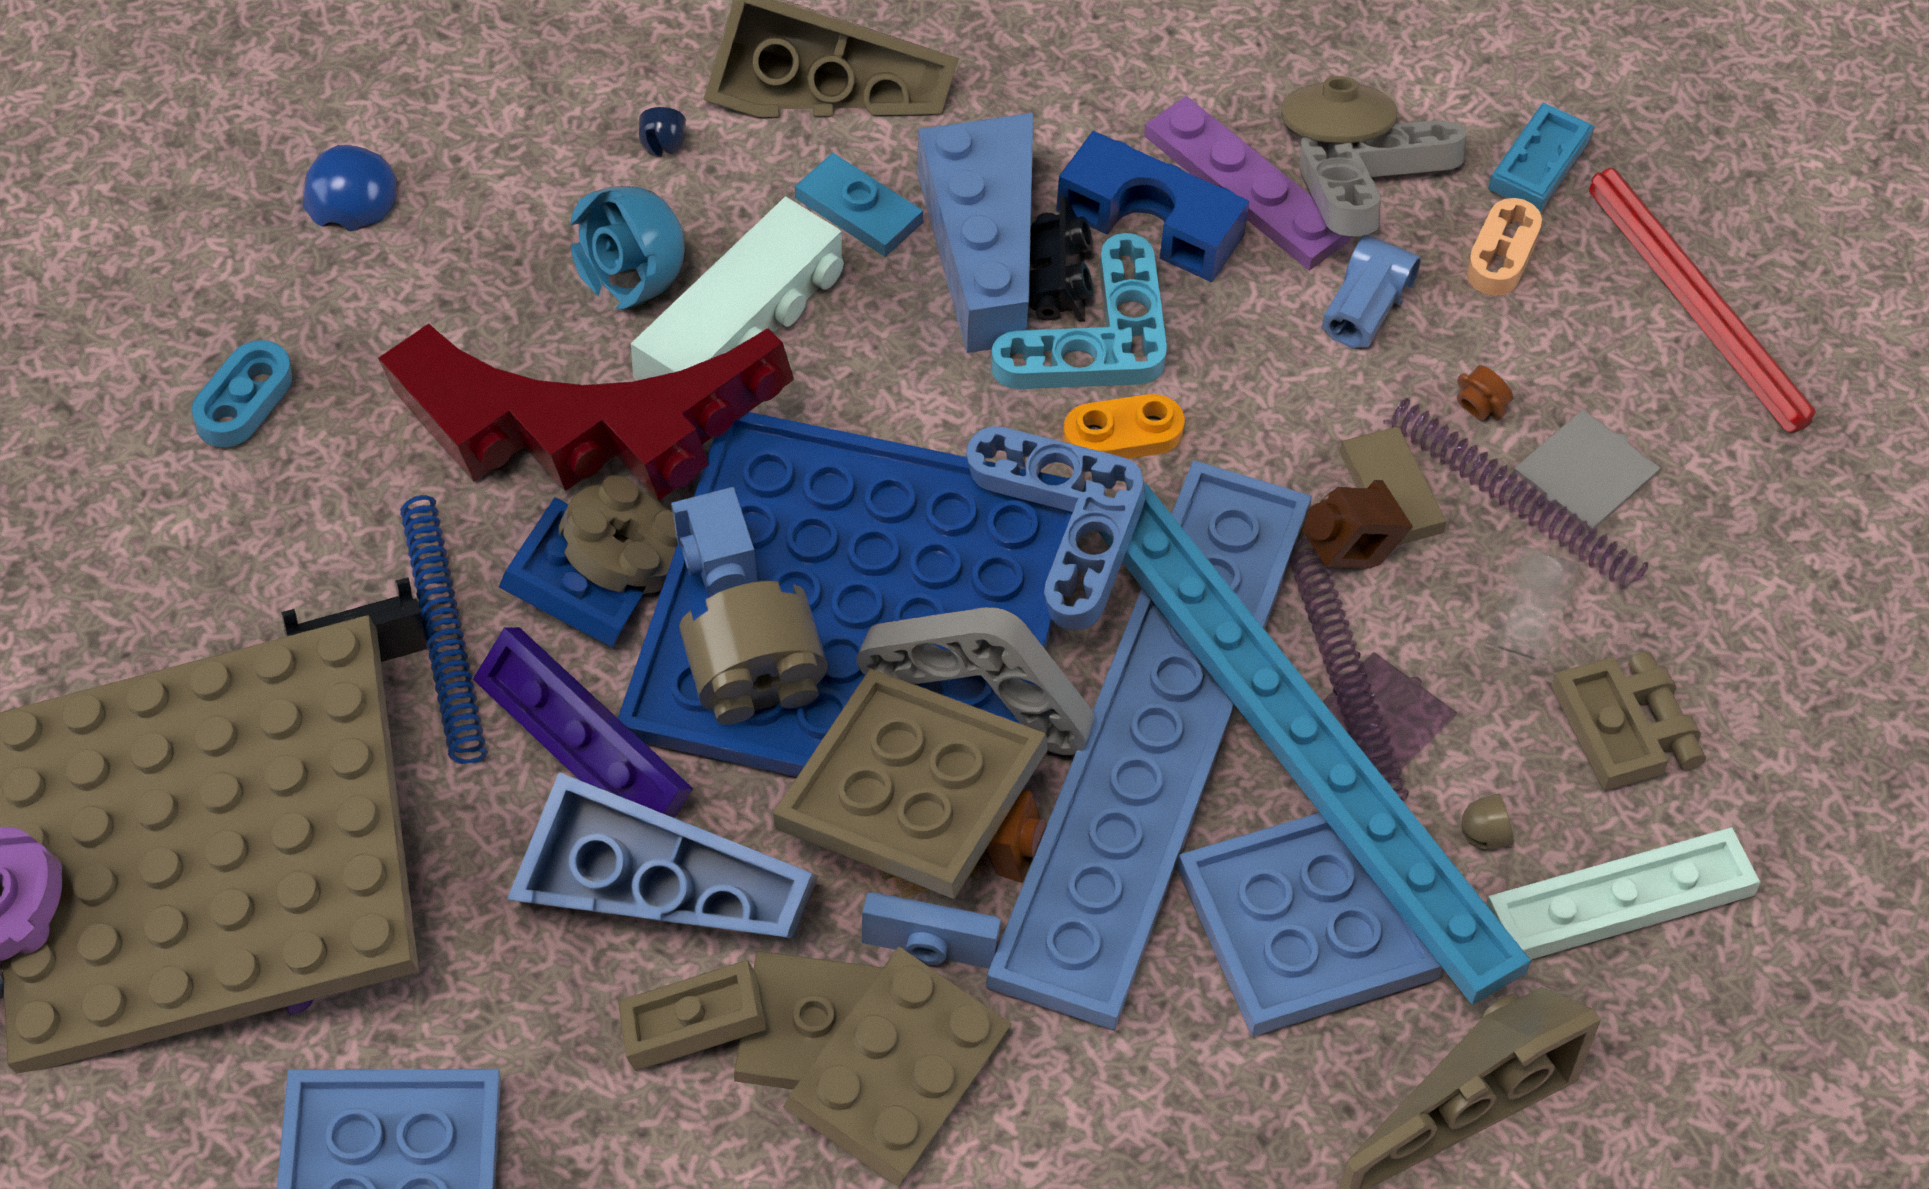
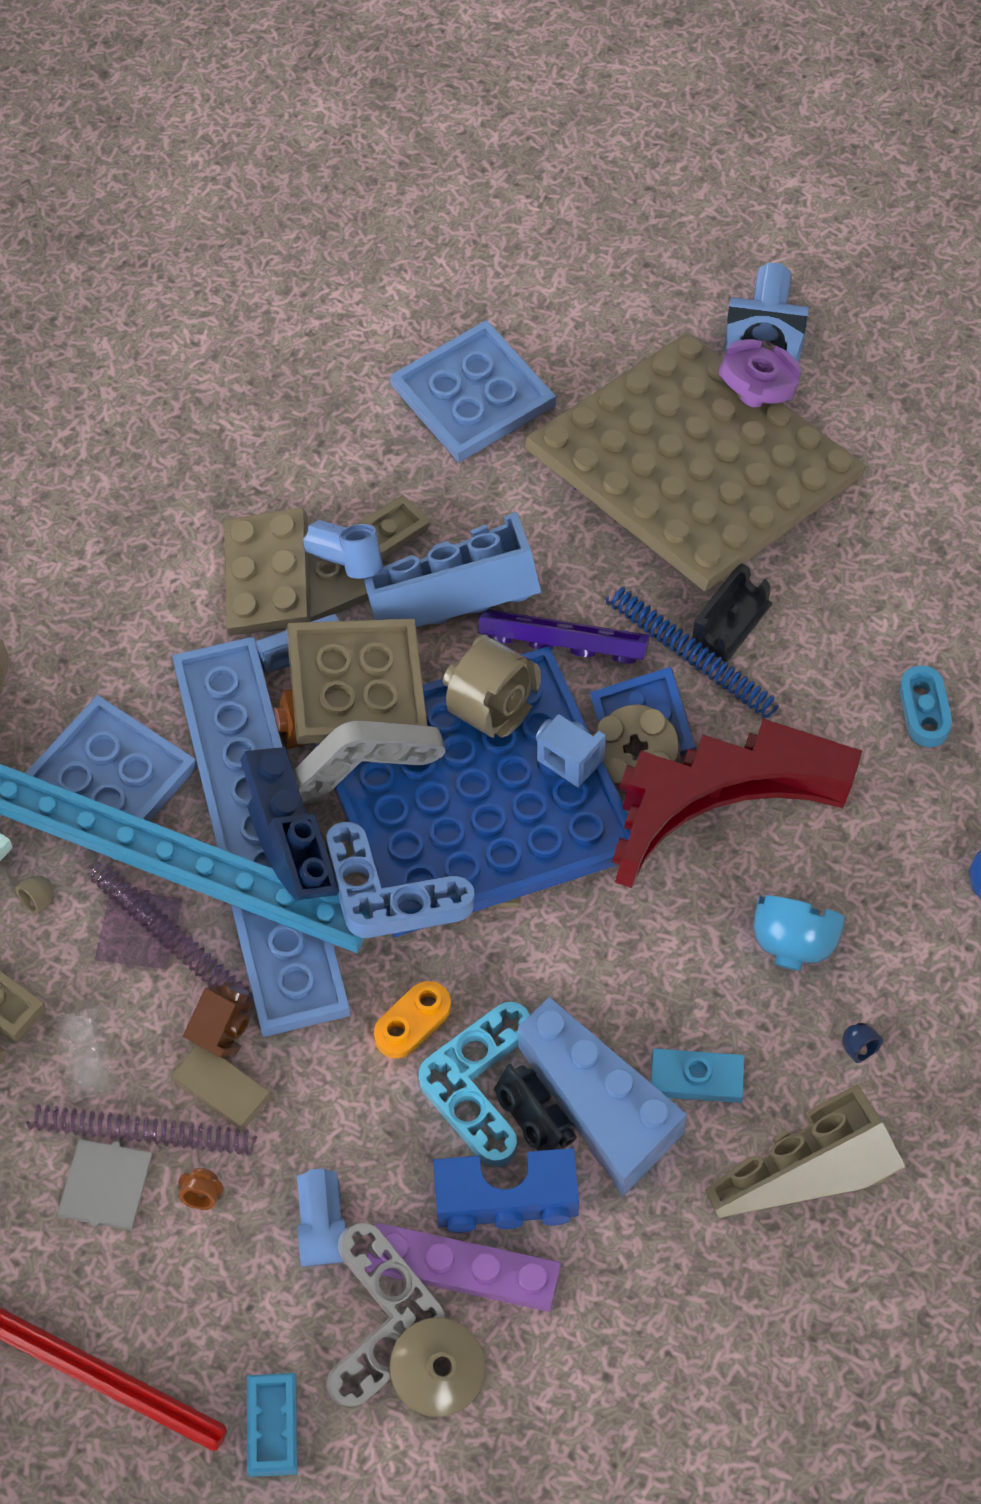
camera: 150 degrees right, 5 degrees up
(747, 290) = (701, 941): light aqua brick -> none
(784, 991) = (351, 546): none -> medium blue piece
(1139, 650) = (284, 828): none -> dark blue slope
(1514, 250) = (244, 1329): light nougat beam -> none

